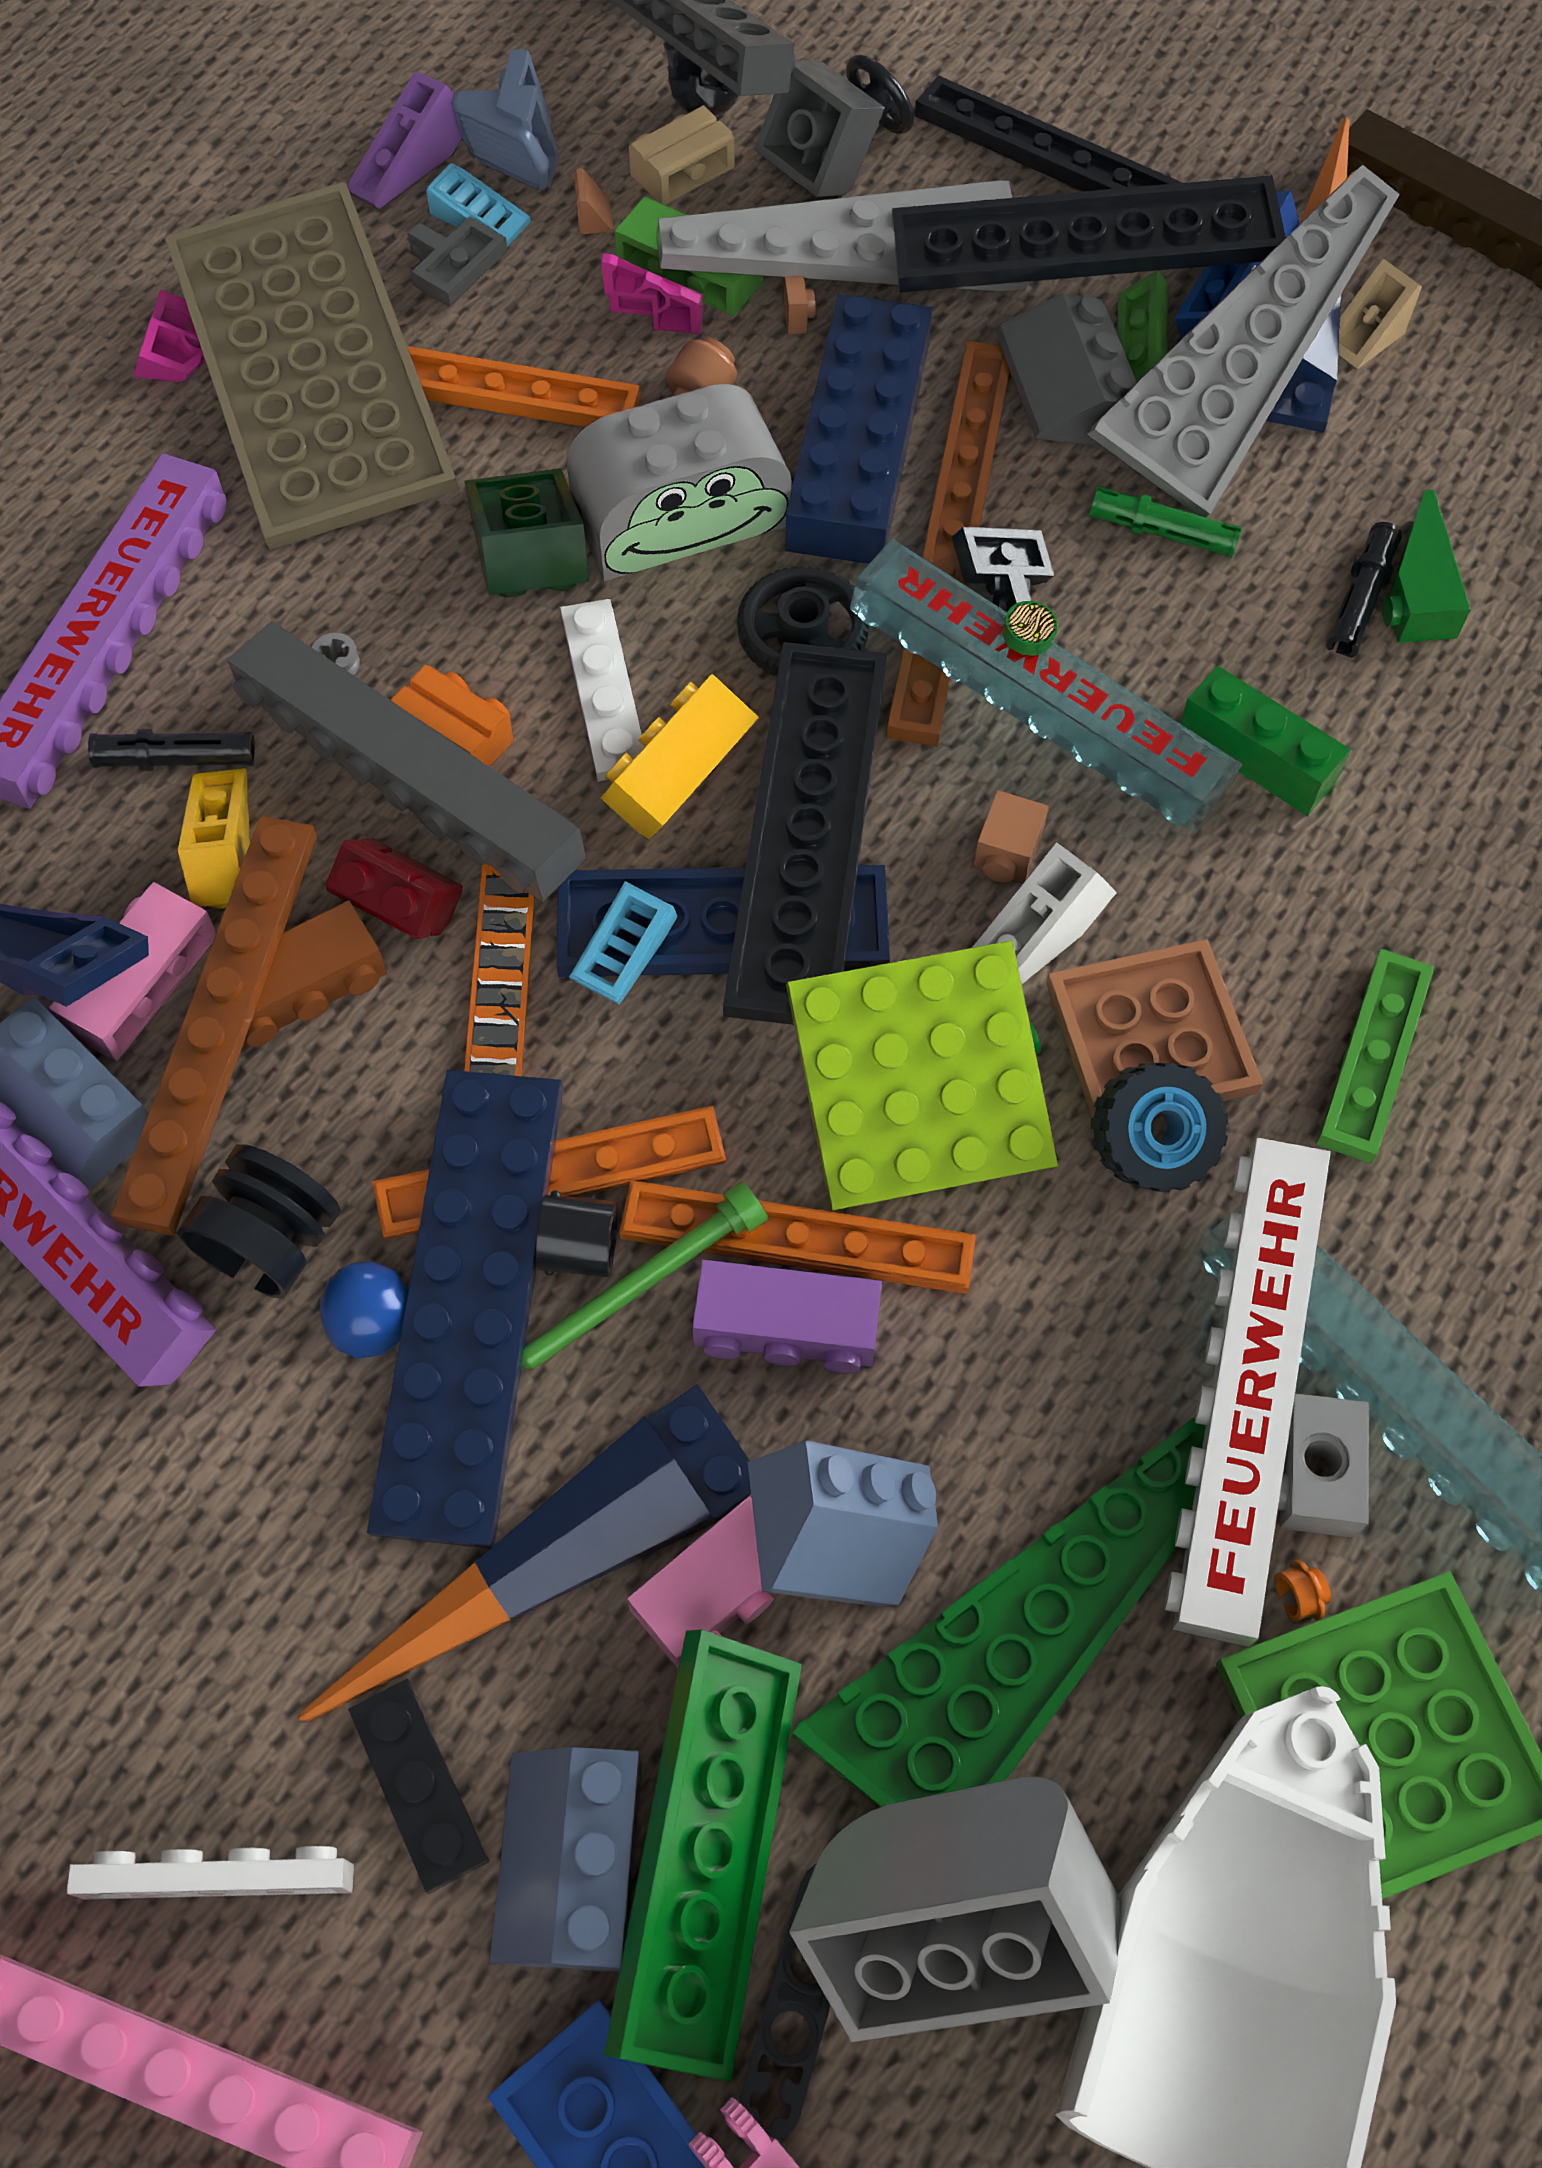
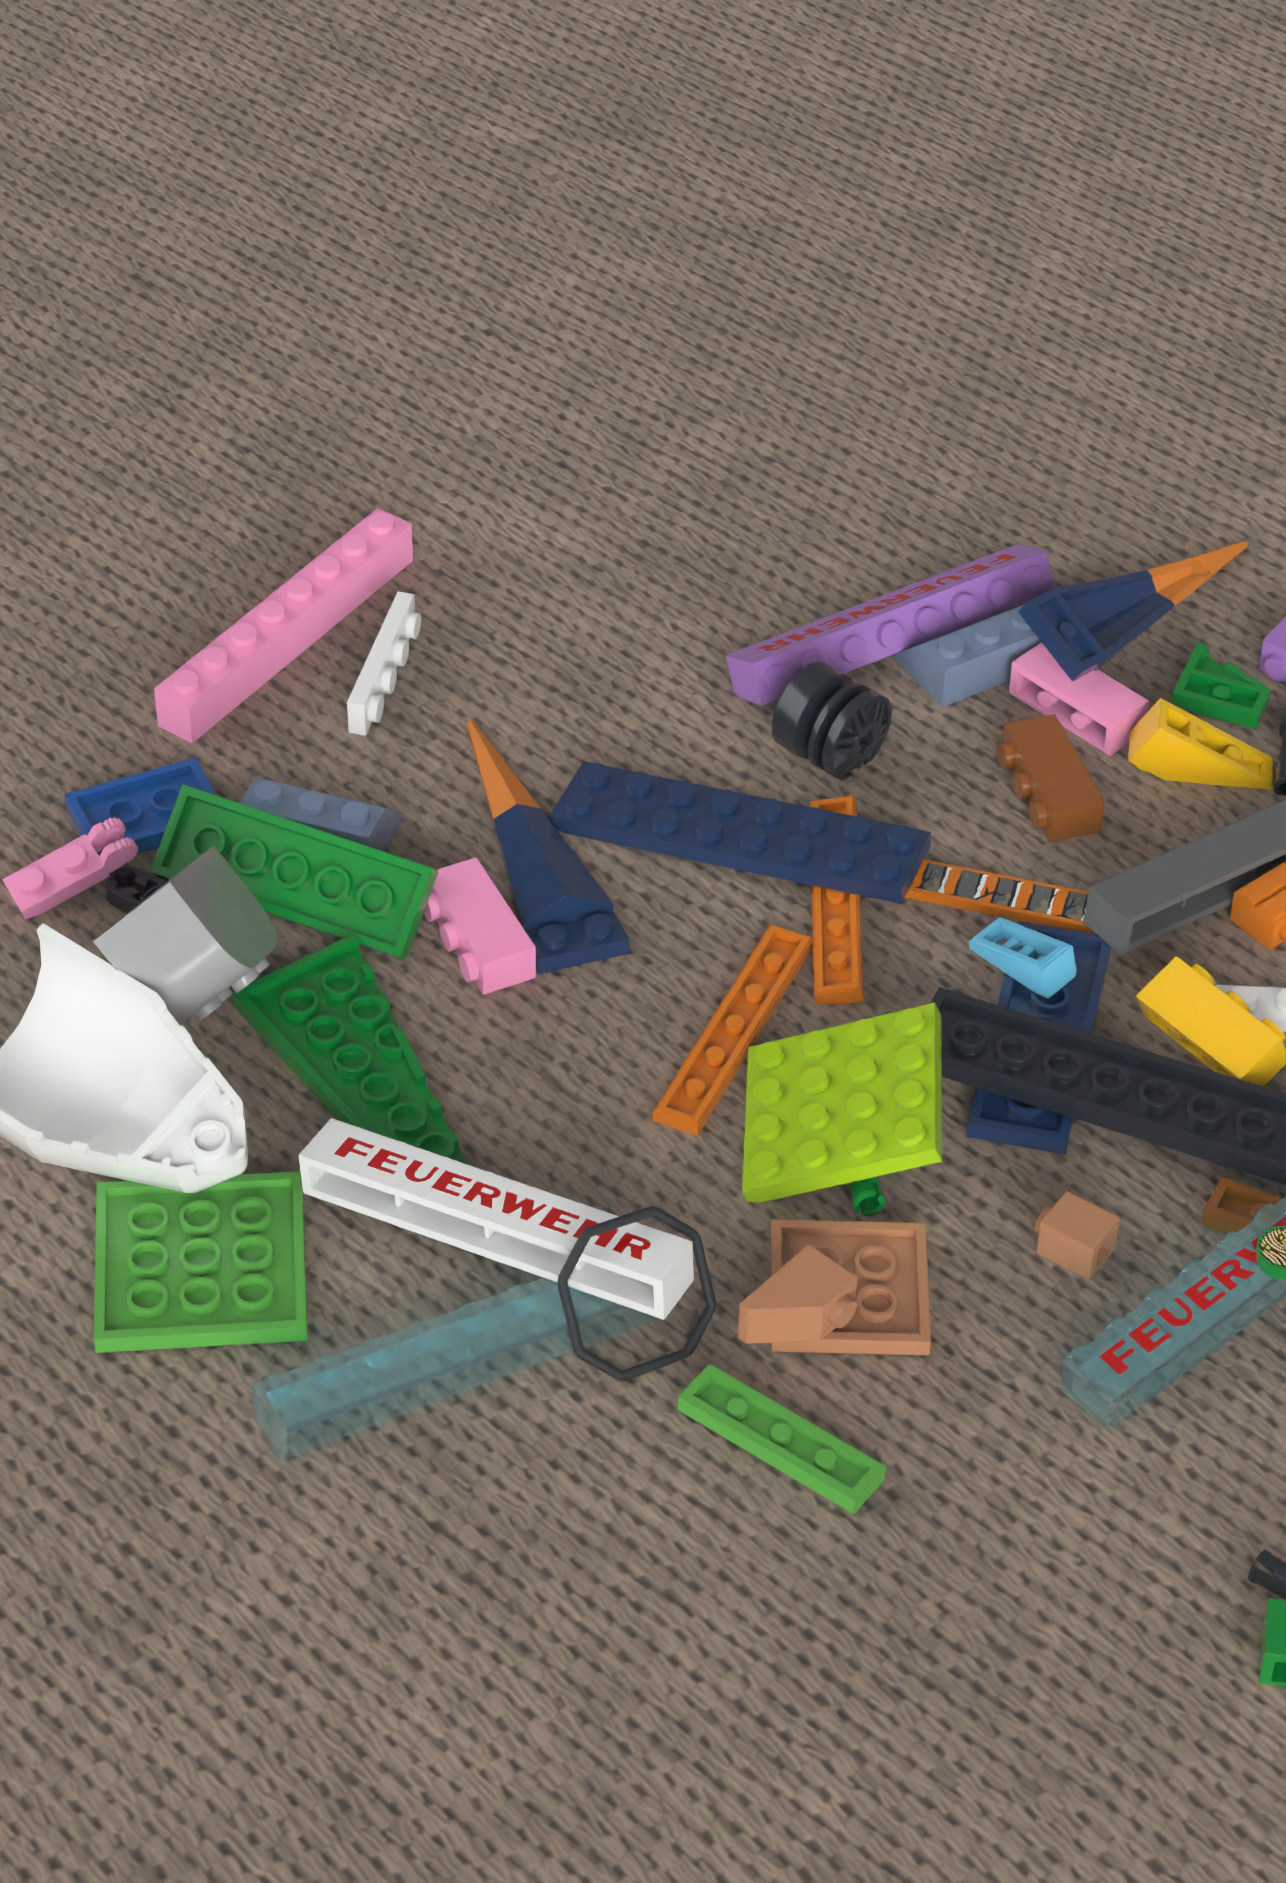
camera: 105 degrees right, 20 degrees down
(87, 835) = (1220, 691): none -> green wing
(214, 1028) = (1015, 716): dark orange plate -> none
(364, 1309) = (758, 776): blue hair -> none
(393, 887) = (1116, 835): dark red brick -> none
(418, 1786) = (402, 765): black plate -> none
(576, 1235) = (771, 890): black piece -> none
(735, 1213) = (758, 977): bright green piece -> none
(786, 1315) = (664, 996): medium lavender brick -> none
(840, 1523) = (478, 958): sand blue slope -> none
(1049, 910) = (983, 1233): white slope -> none
(1193, 1126) = (748, 1239): black wheel -> none
(1236, 1052) = (799, 1301): none -> nougat slope
(1268, 739) = (1143, 1445): green brick -> none
(1309, 1590) = (331, 1242): orange plate -> none
(1340, 1436) = (419, 1275): light grey brick -> none
(1370, 1258) = (569, 1311): none -> black piece

